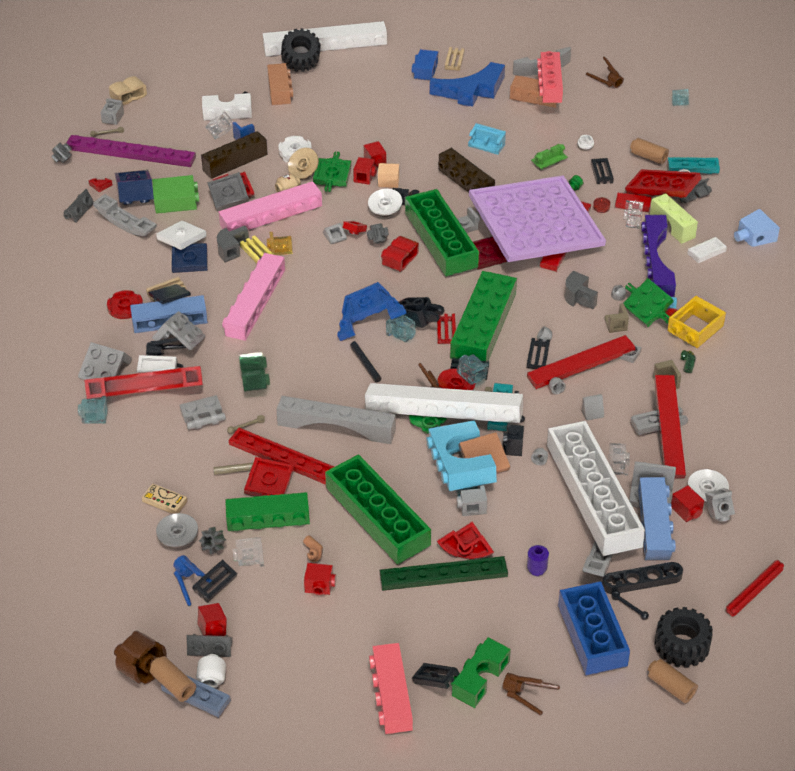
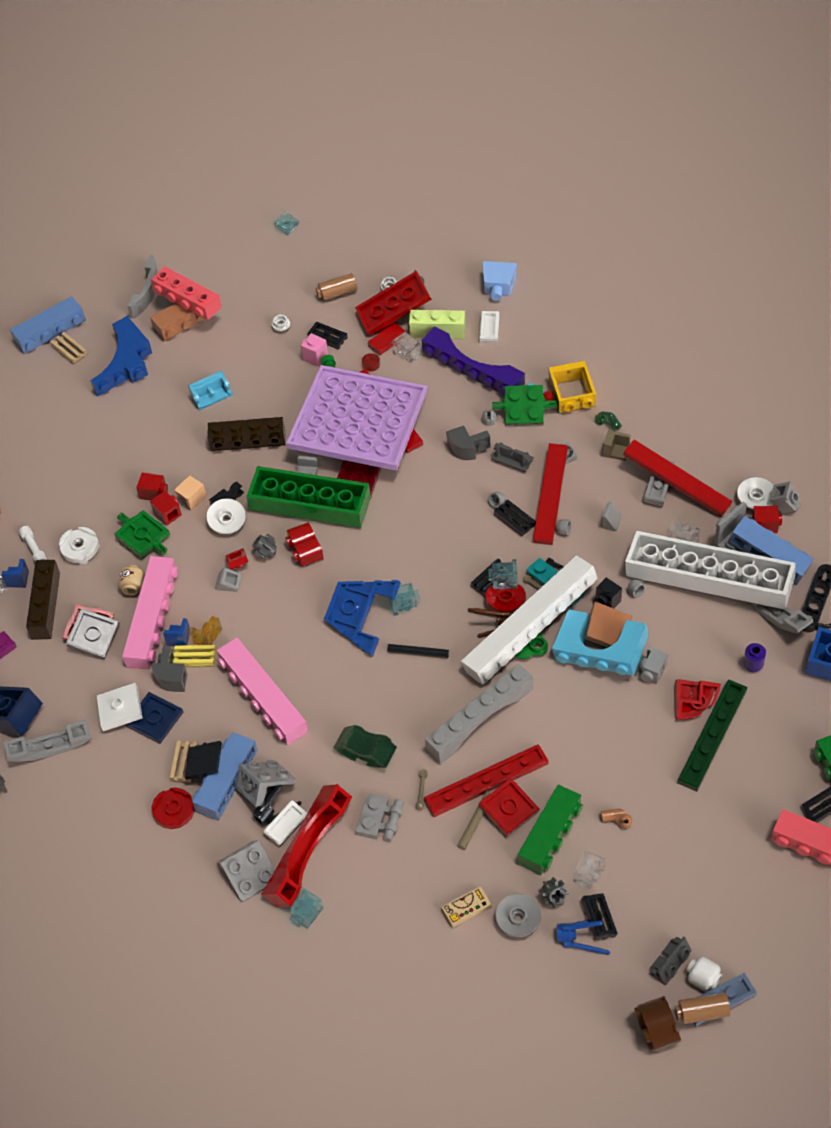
camera: 50 degrees left, 10 degrees up
(175, 194) = (55, 680): bright green brick -> none
(212, 620) = (652, 942): red brick -> none
(262, 232) = (177, 634): none -> blue panel
(281, 122) = (27, 535): none -> white bar
(300, 159) = (100, 552): tan dish -> none
(319, 579) = (658, 831): red brick -> none
(378, 509) = (614, 740): green brick -> none
(422, 310) = (397, 569): black hinge -> none
(425, 64) = (59, 374): blue brick -> none
(445, 318) = (430, 563): red tile -> none
(461, 37) = (47, 324): none -> medium blue brick
(484, 316) = (444, 530): green brick -> none
(549, 157) = (276, 360): bright green hinge -> none
(578, 166) = (314, 349): none -> bright pink brick
(593, 322) = (511, 457): none -> dark grey hinge
(613, 77) = (217, 251): reddish brown plant -> none
(617, 322) = (522, 437): dark tan panel -> none
(693, 164) = (381, 269): teal plate -> none

